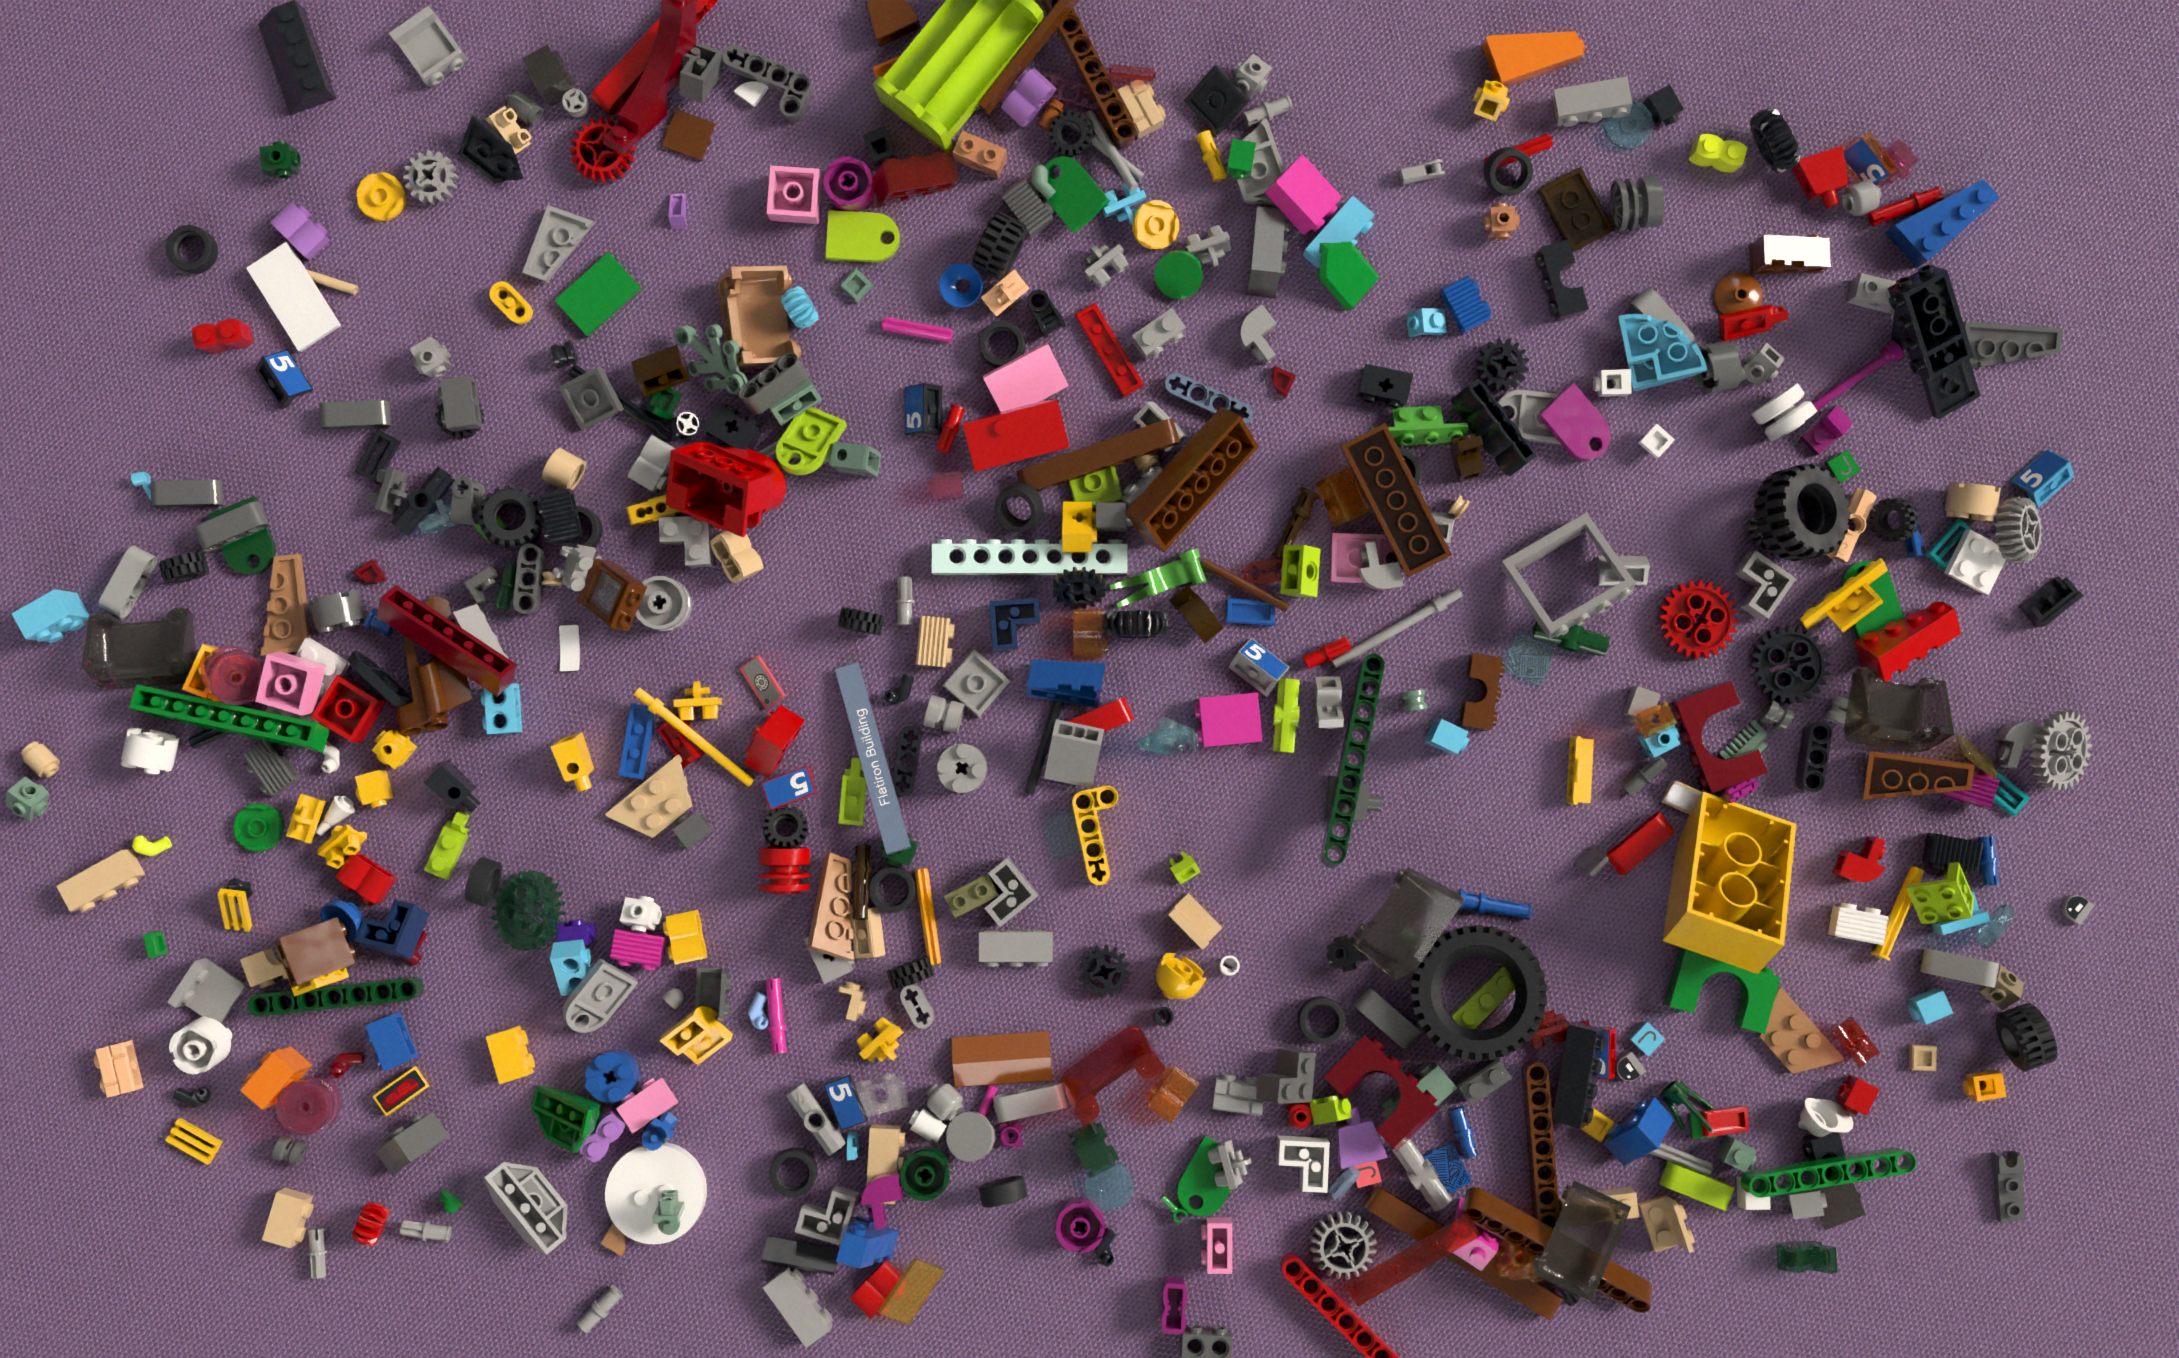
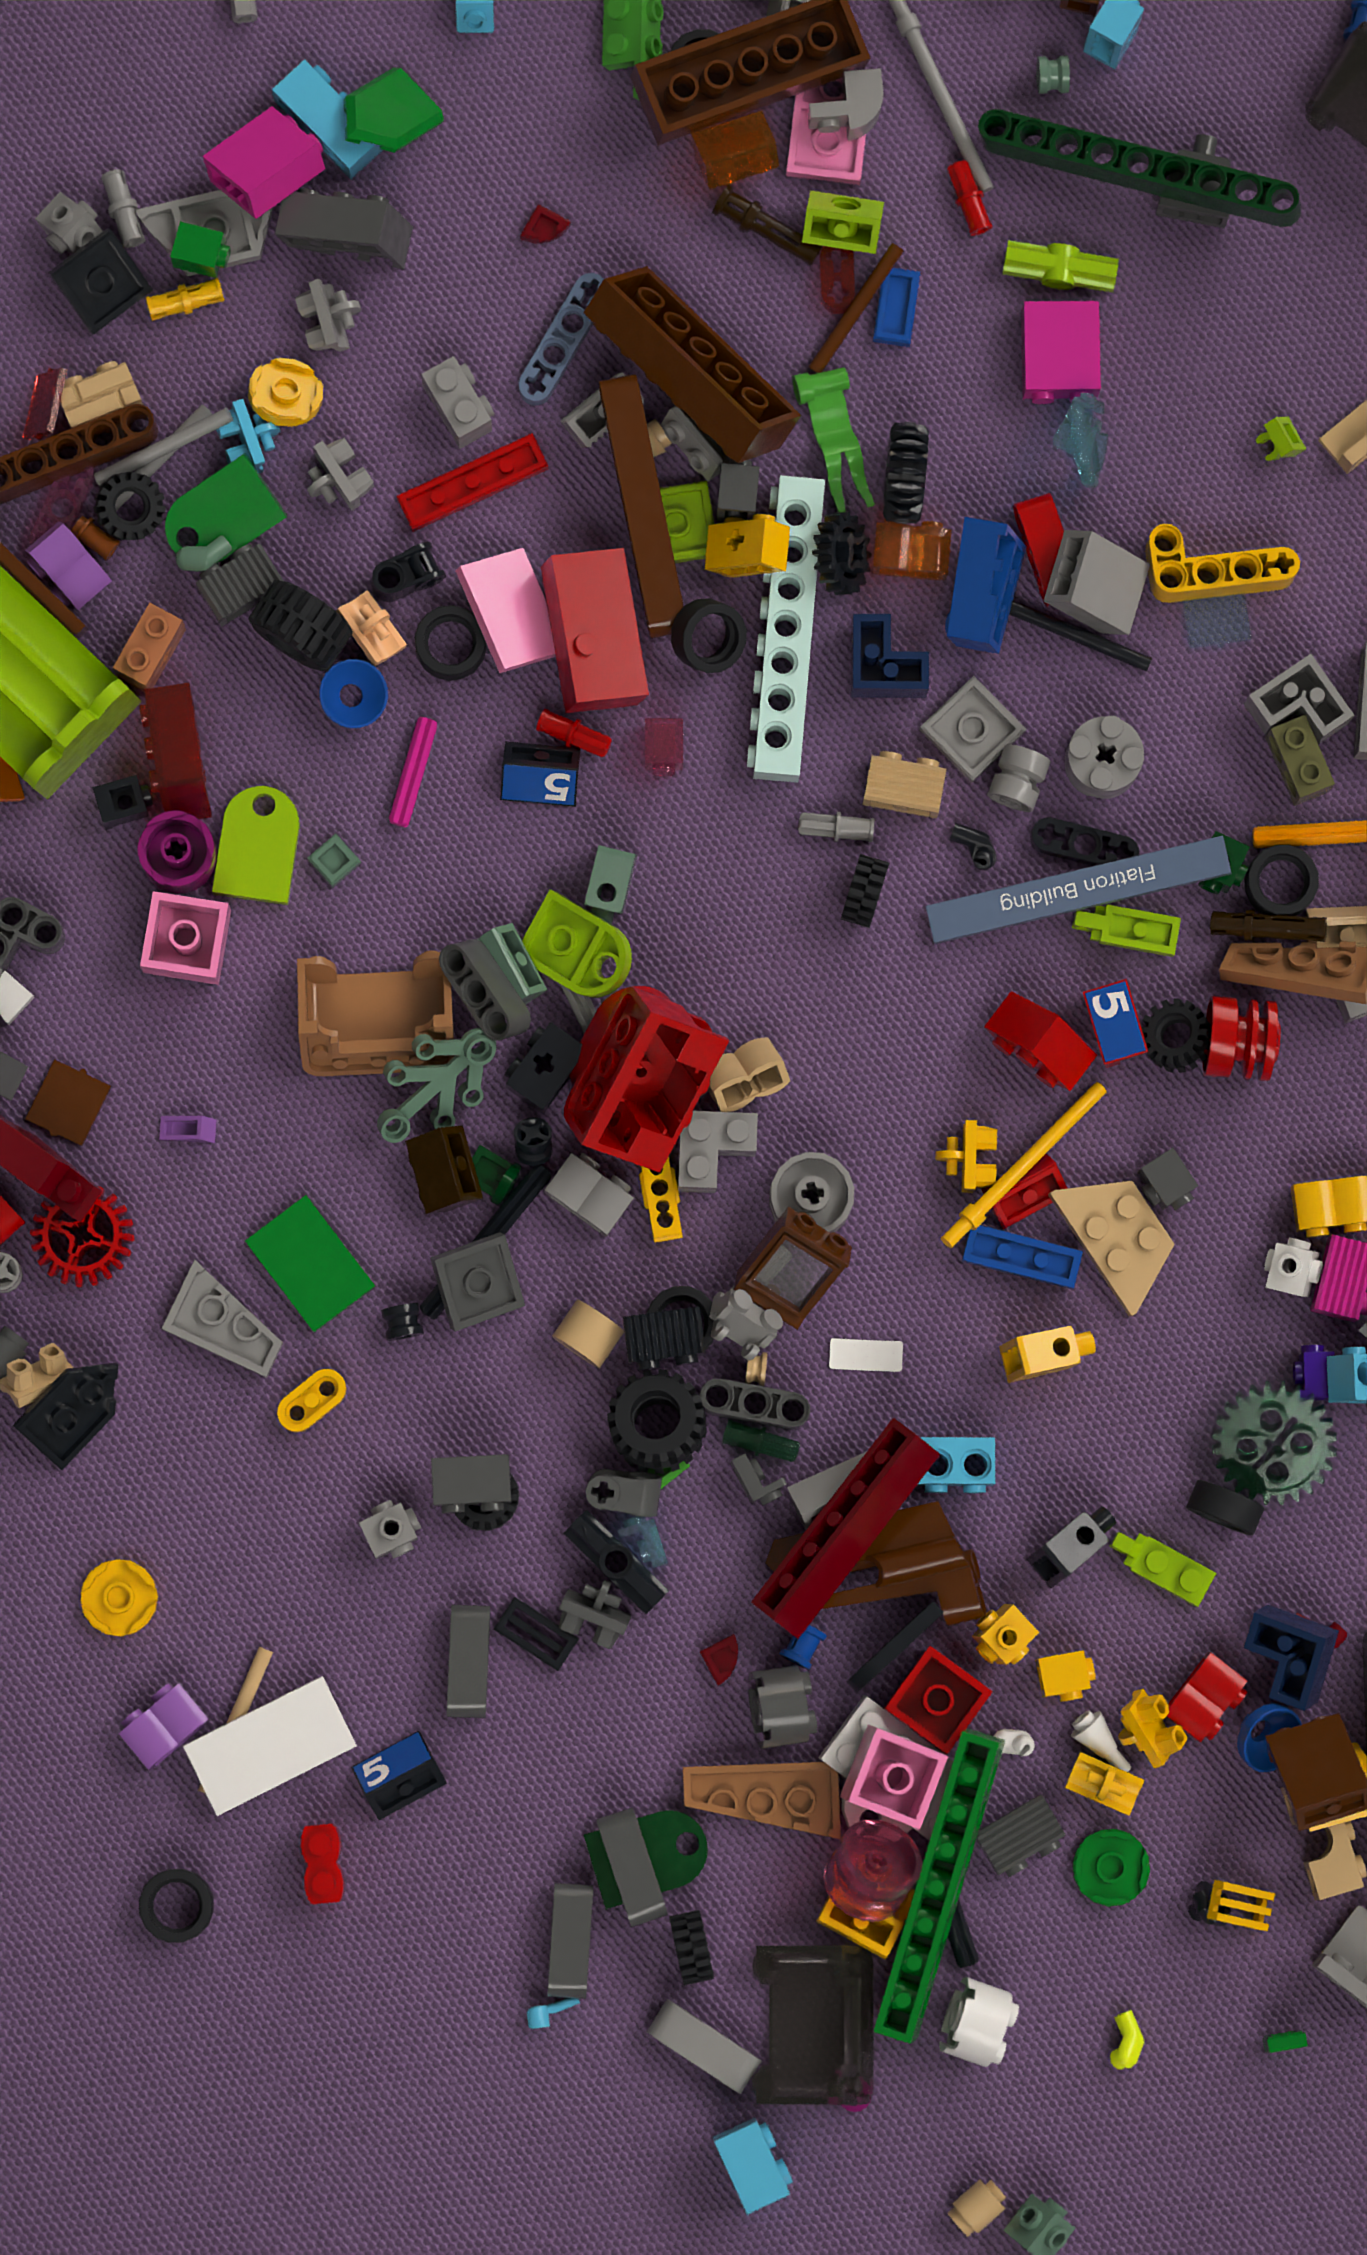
camera: 95 degrees left, 5 degrees down
(101, 881) = (1179, 2121): tan brick -> none
(280, 160) = (32, 1747): dark green brick -> none
(423, 185) = (84, 1522): light grey gear -> none
(762, 682) = (944, 1056): slope -> none
(799, 307) = (365, 944): medium azure gear -> none
(1178, 274) = (367, 363): green tile -> none
(1196, 614) = (894, 382): dark brown brick -> none
(1253, 330) = (463, 260): light grey brick -> none
(1258, 667) = (983, 300): panel -> none
(1328, 702) = (1047, 201): light grey brick -> none
(1397, 381) = (567, 51): black brick -> none

